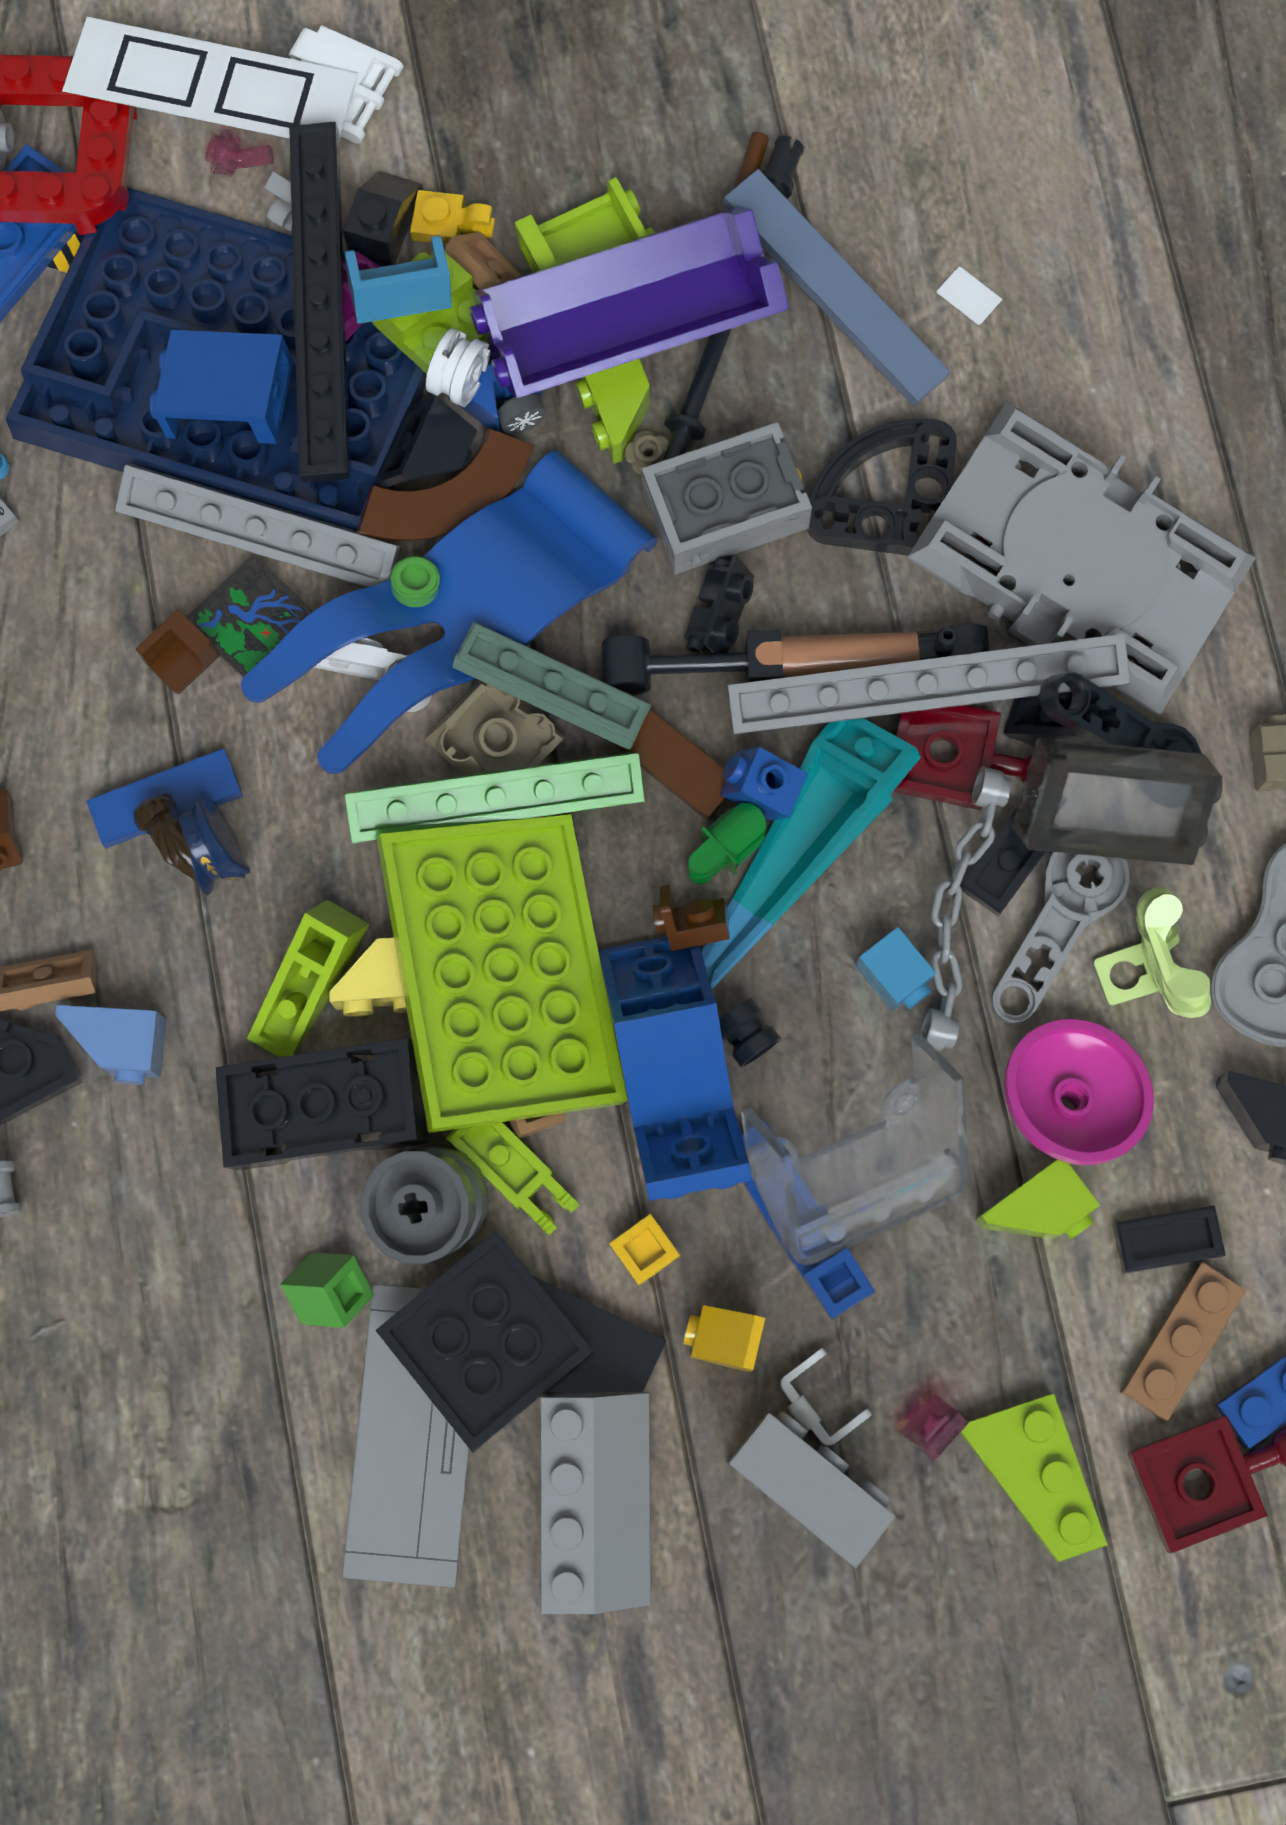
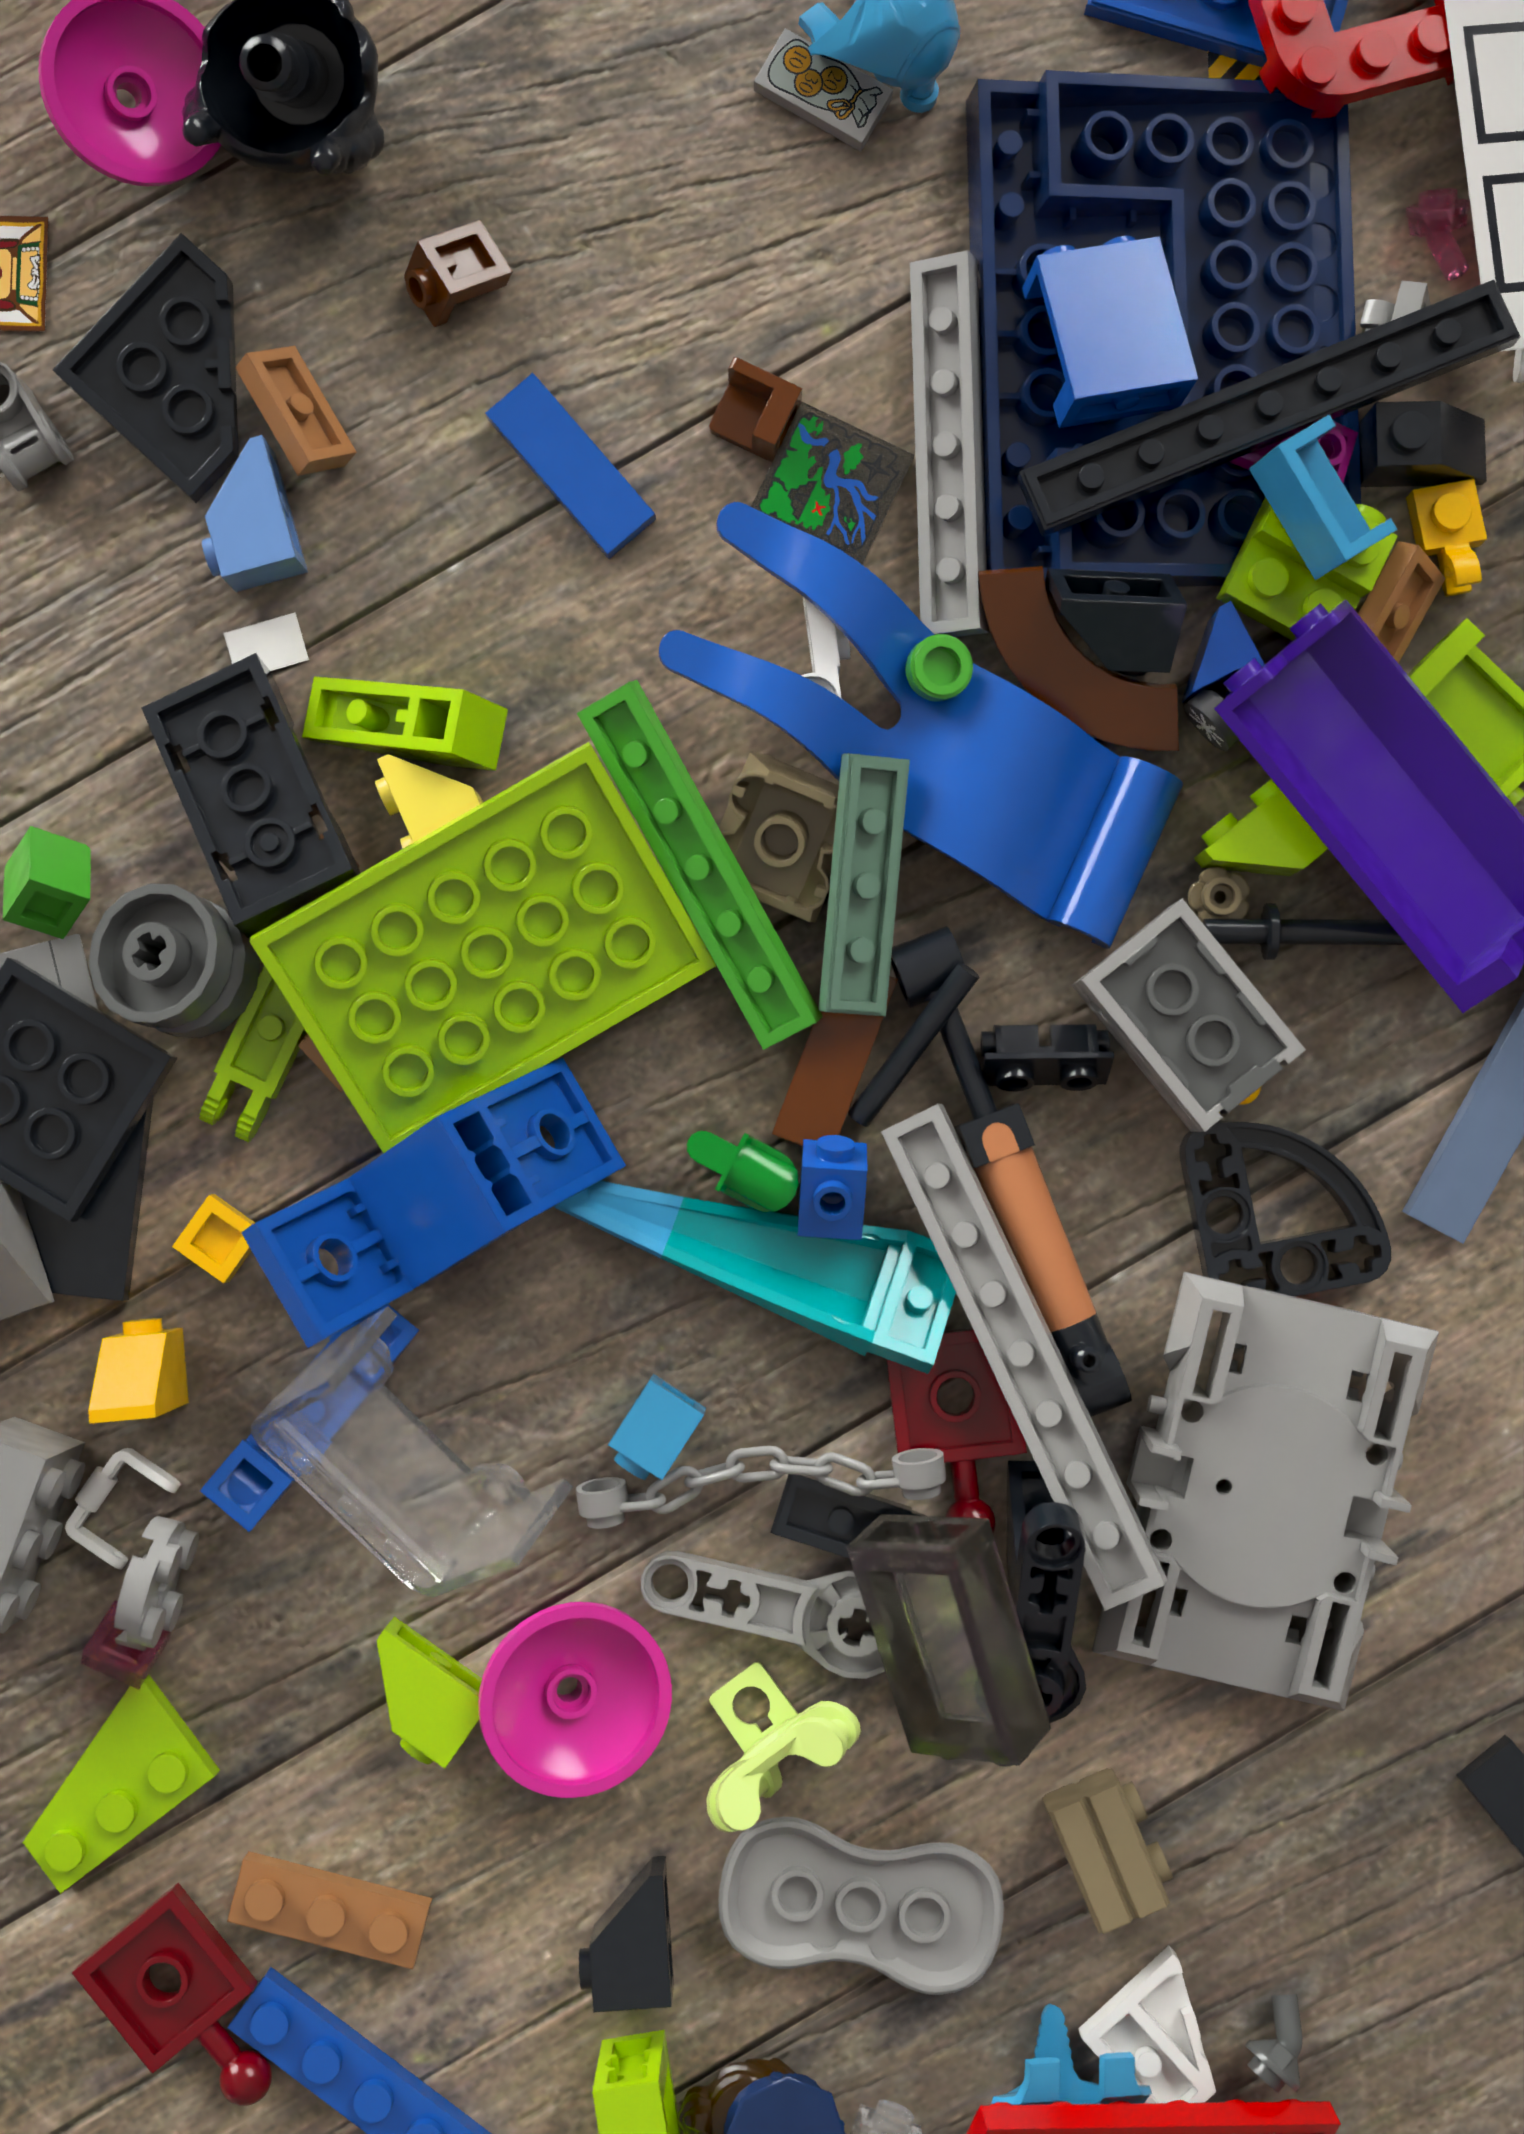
camera: 75 degrees right, 10 degrees up
(193, 840) = (517, 523): piece -> none
(204, 1058) = (275, 642): none -> white sticker
(457, 367) = (1233, 617): white wheel -> none
(678, 693) = (913, 1044): none -> black bar
(692, 924) = (628, 1159): reddish brown bracket -> none
(746, 1032) = (520, 1268): black wheel -> none
(902, 1388) = (148, 1590): none -> light grey plate
(1168, 1239) = (445, 1856): black tile -> none

